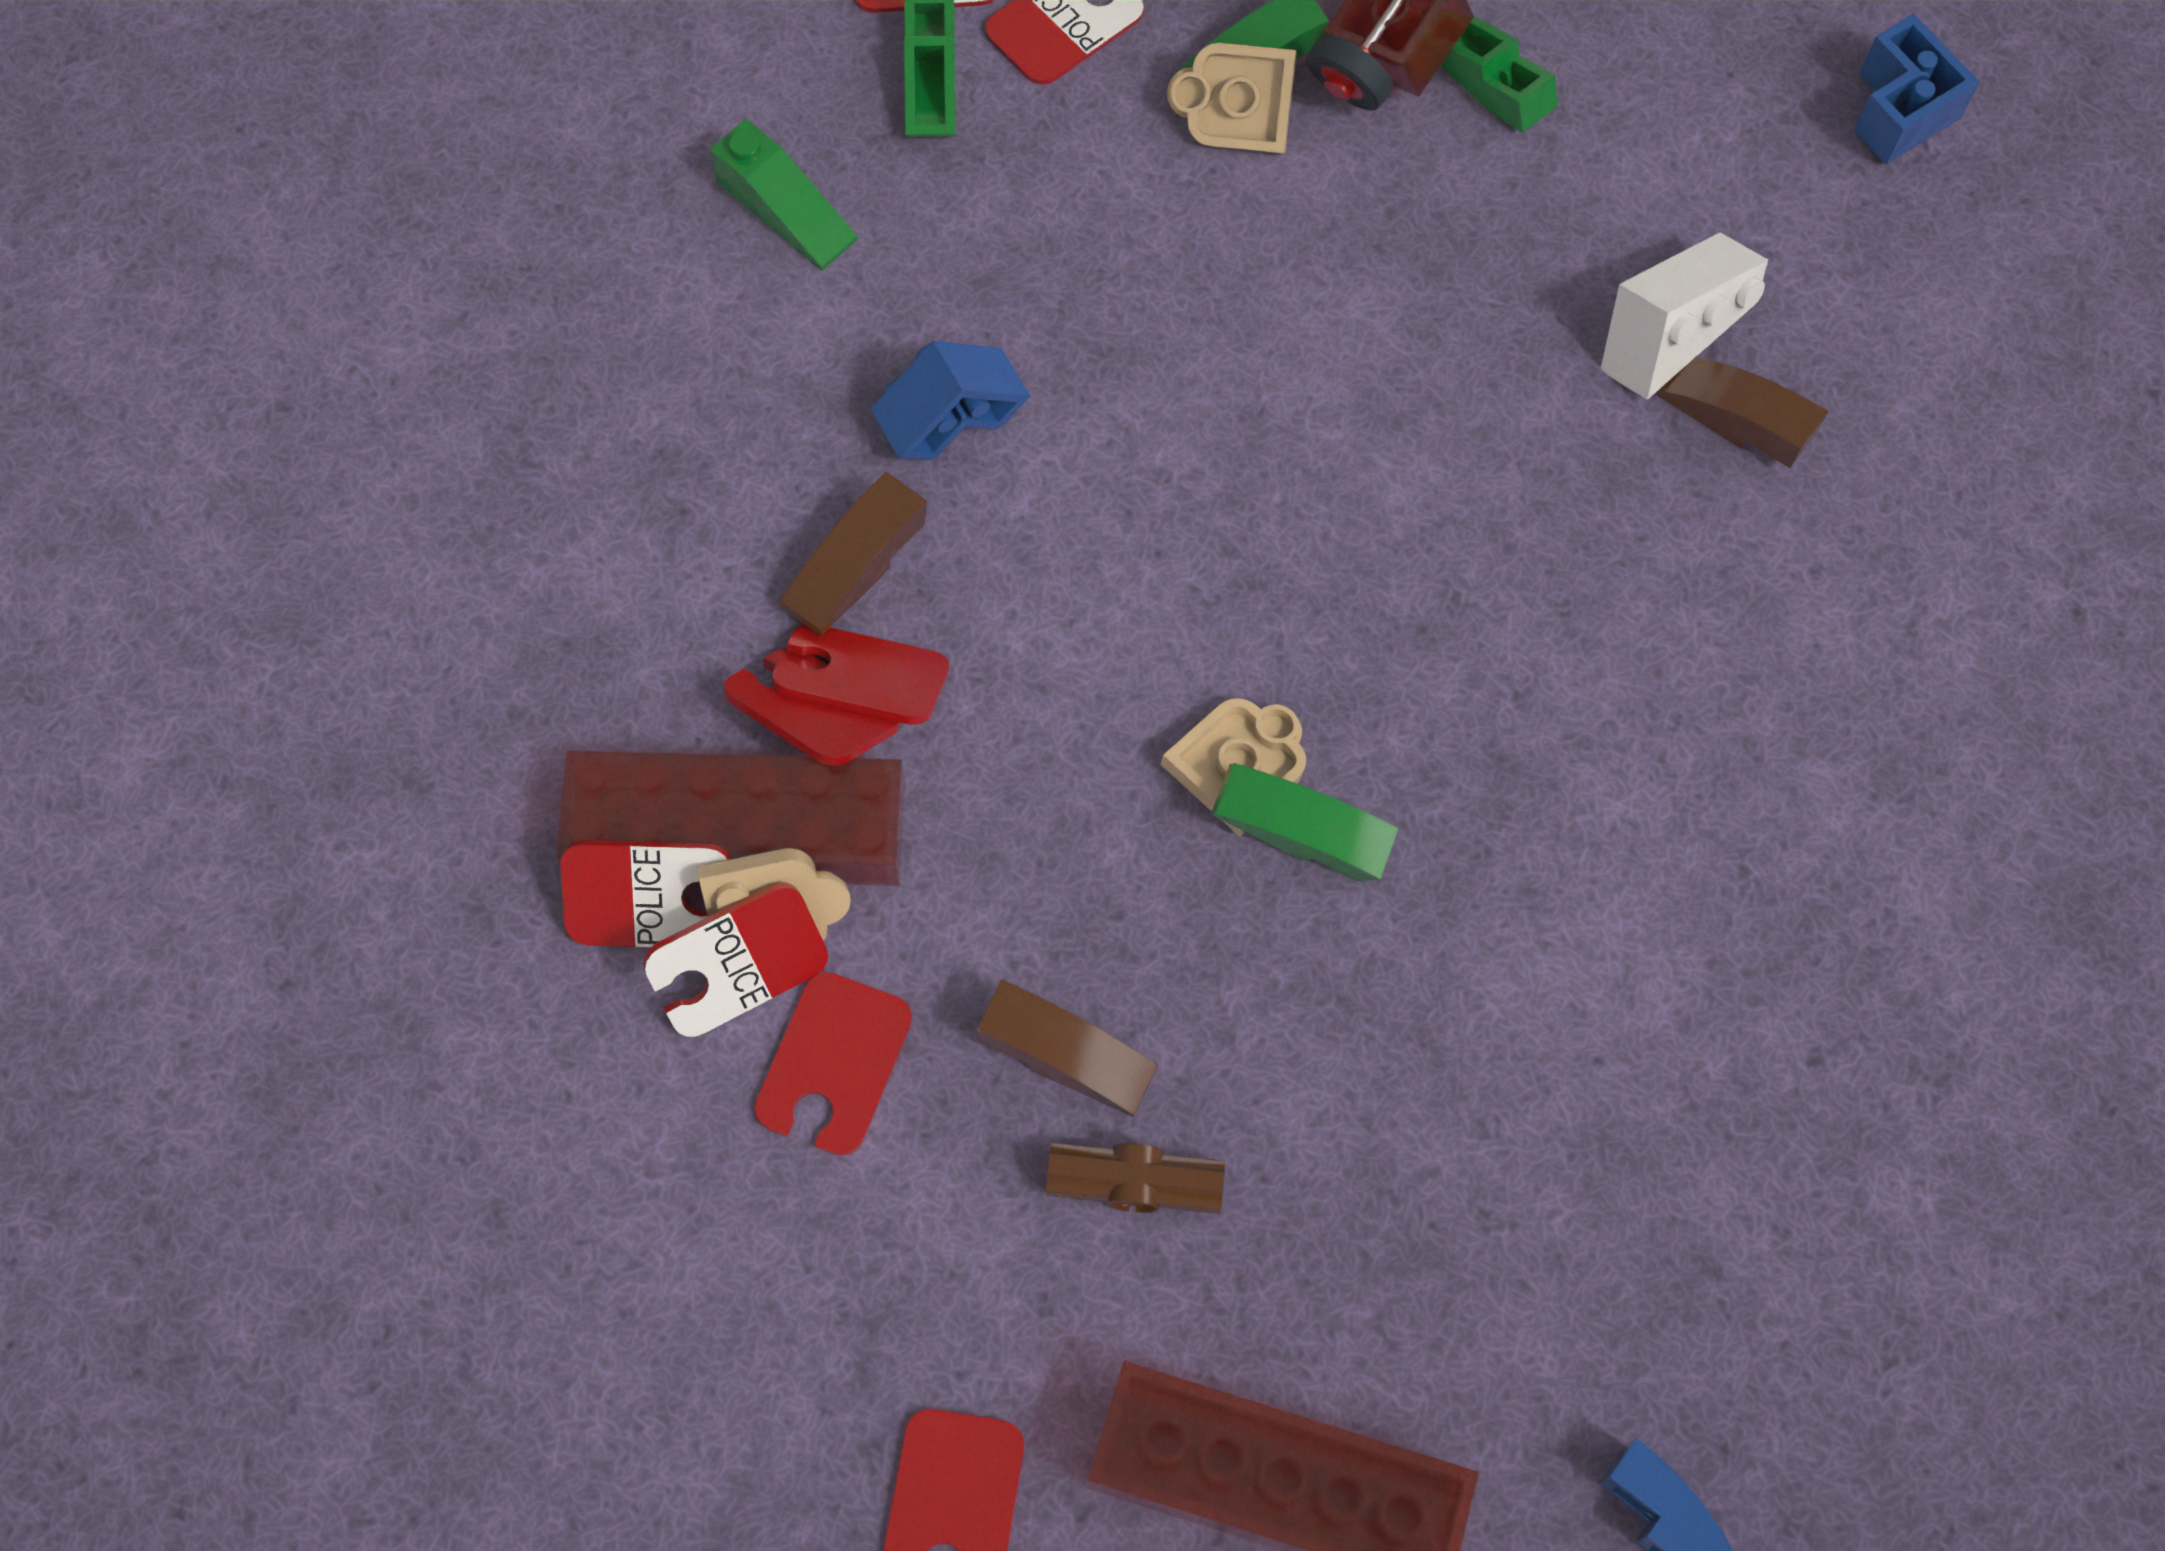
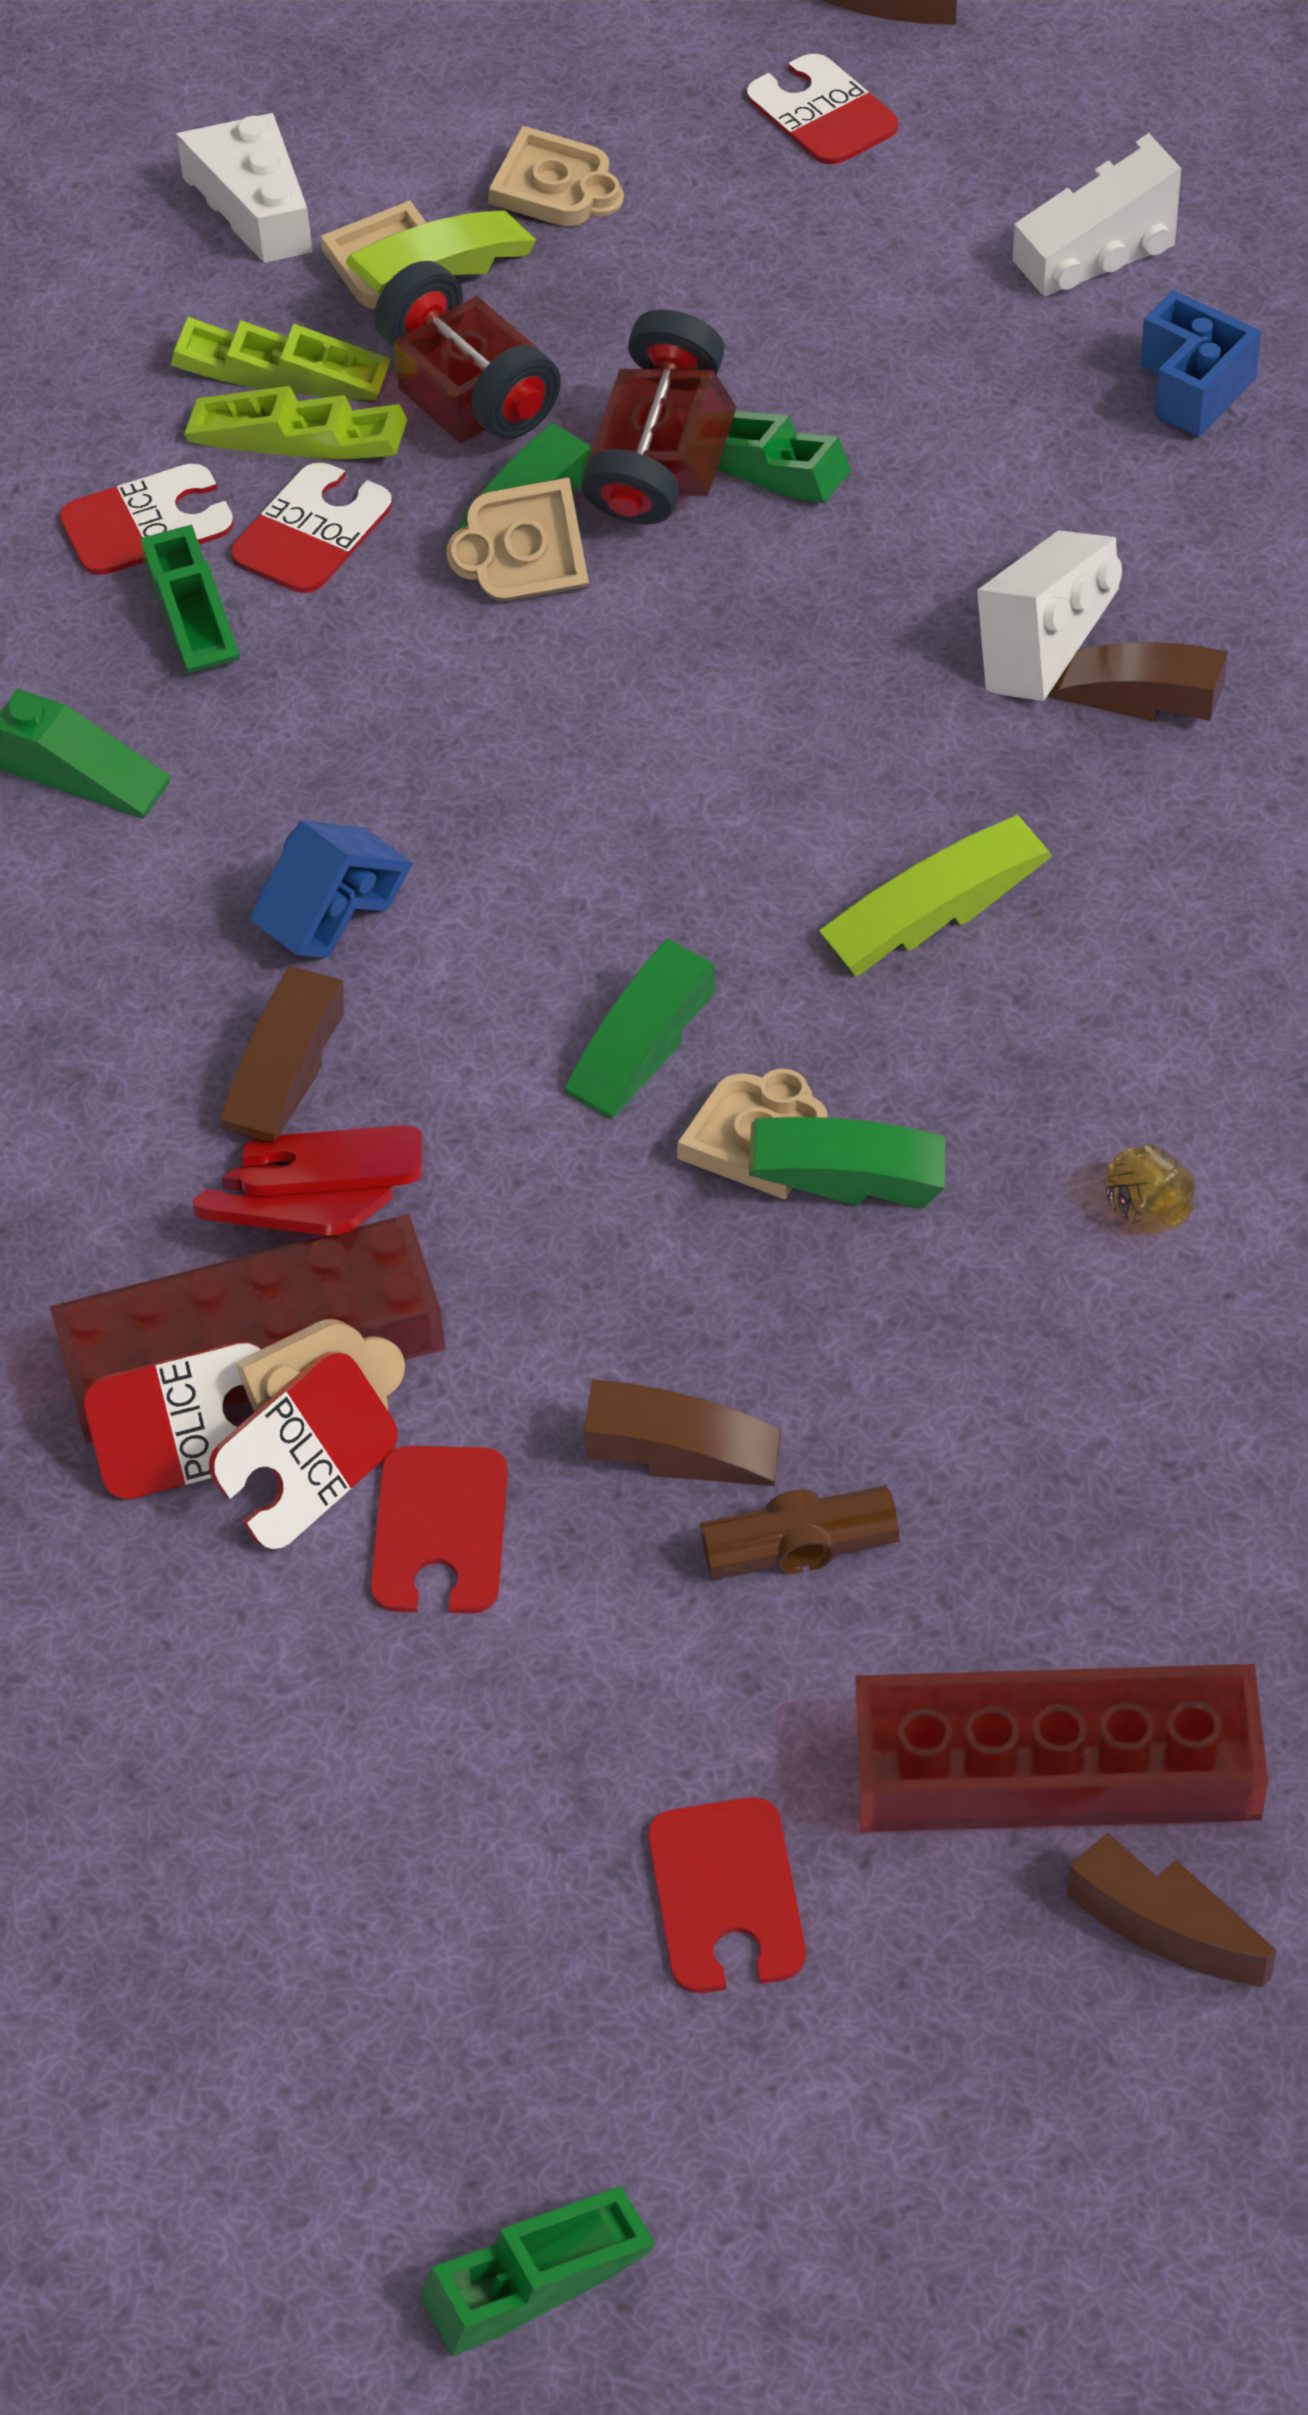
camera: 15 degrees left, 15 degrees down
(1172, 627) = (642, 1028): none -> green slope
(1480, 570) = (930, 894): none -> lime slope
(1564, 936) = (1150, 1188): none -> clear yellow head

